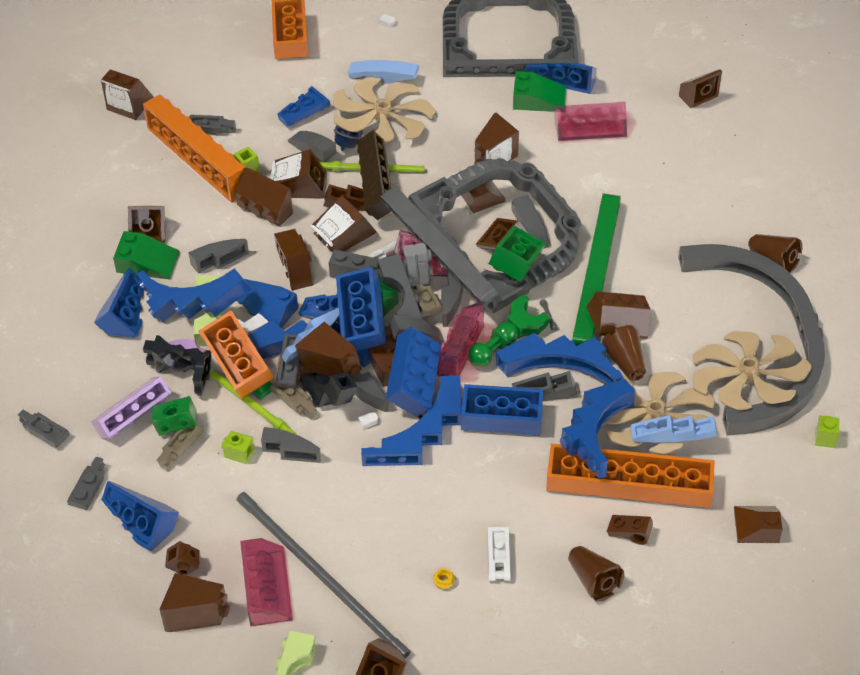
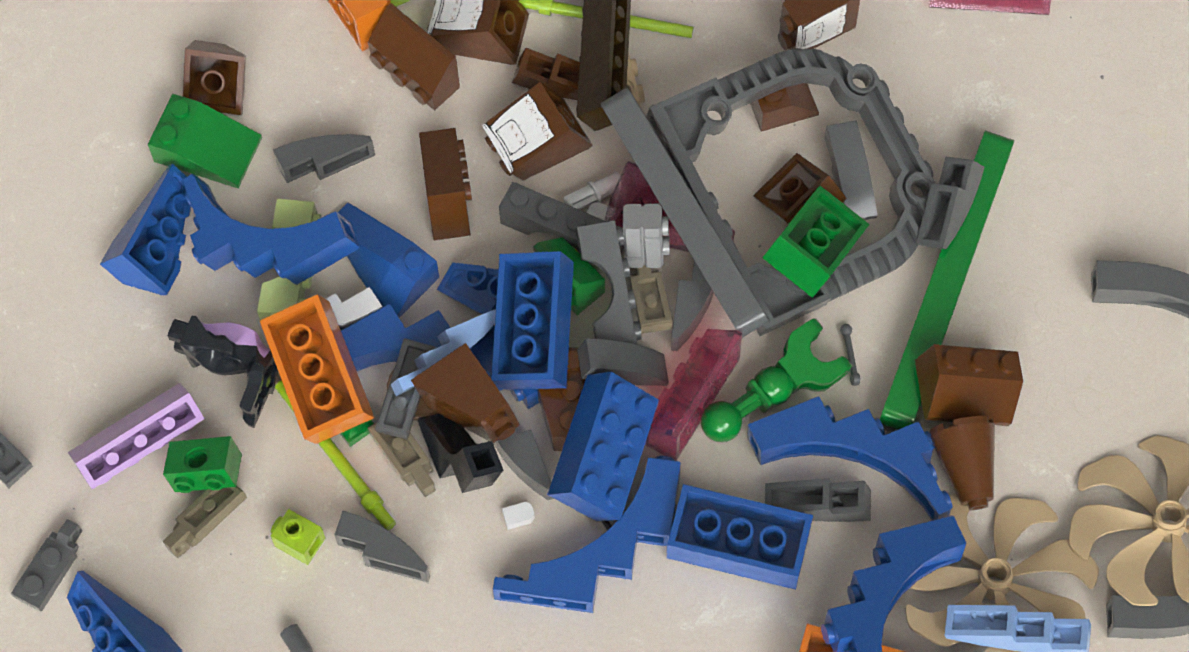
camera: 10 degrees right, 15 degrees up
(590, 226) = (949, 202): none -> dark grey slope

